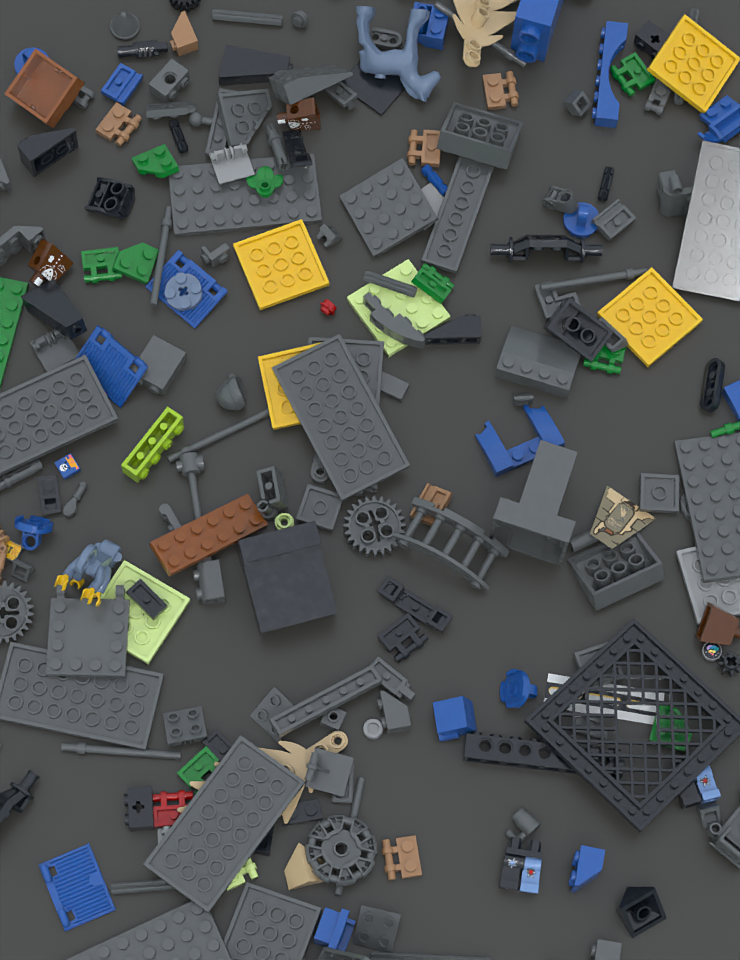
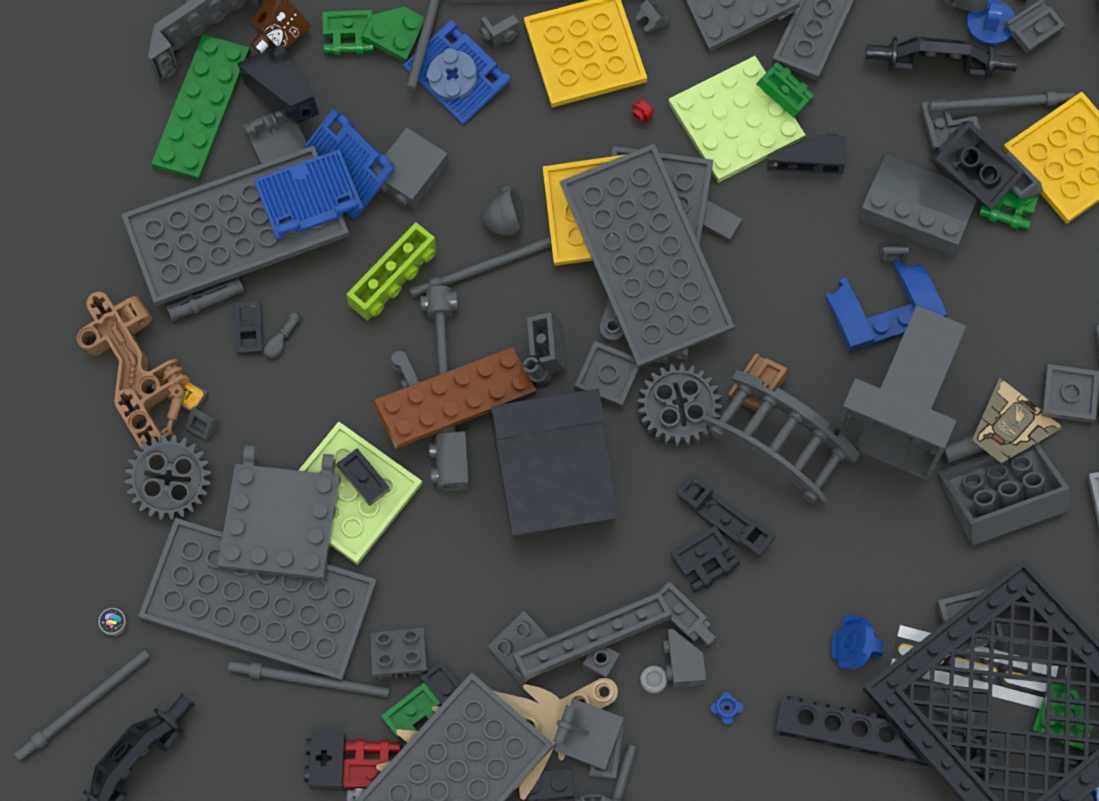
camera: 10 degrees right, 0 degrees up
(34, 527) = (221, 367): blue tile -> none
(67, 466) = (276, 291): blue tile -> none
(84, 391) = (308, 194): none -> blue window
(96, 562) = (300, 422): sand blue animal -> none
(284, 517) = (555, 383): yellowish green plate -> none
(390, 283) = (728, 85): dark grey axle -> none
(397, 327) = (731, 143): dark grey slope -> none
(427, 738) = (734, 708): none -> blue plate
(454, 718) = (766, 675): blue plate -> none

